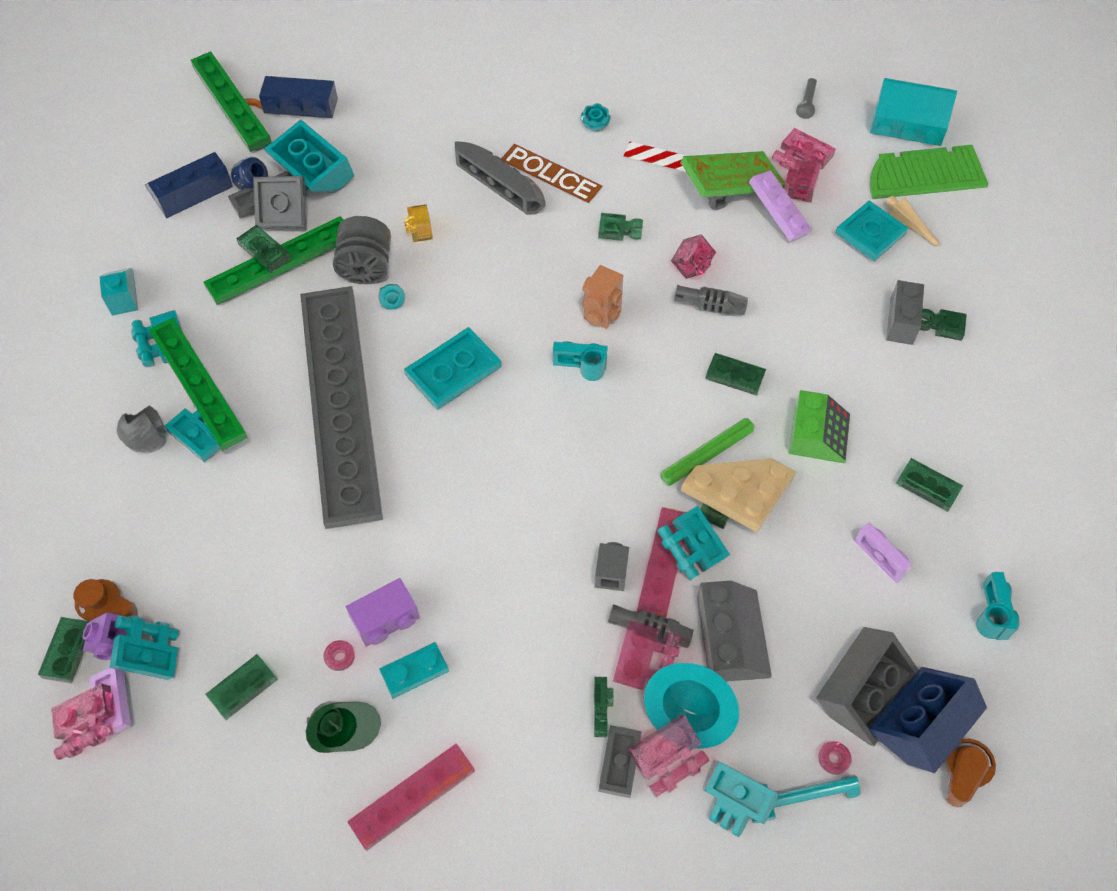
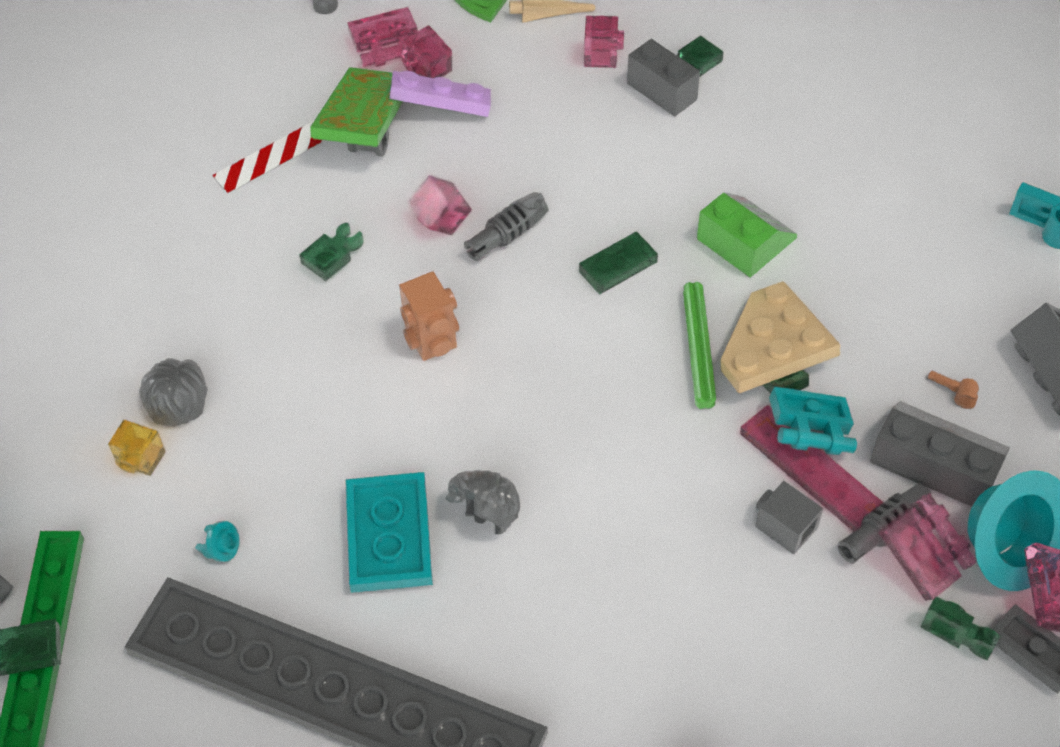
camera: 55 degrees left, 5 degrees down
(362, 250) = (129, 530): dark grey wheel -> none
(467, 216) = (173, 392): none -> dark grey hair
(500, 177) = (143, 326): dark grey brick -> none
(501, 399) = (487, 497): none -> dark grey hair
(551, 173) = (182, 274): dark orange sticker -> none
(580, 356) = (486, 388): teal plate -> none
(595, 117) = (150, 182): teal plate -> none
(794, 627) = (966, 390): none -> nougat hand
(871, 230) = (536, 43): teal plate -> none
(883, 553) = (931, 265): lavender plate -> none
(904, 261) = (602, 41): none -> clear pink brick
(929, 484) = (876, 183): clear green plate -> none

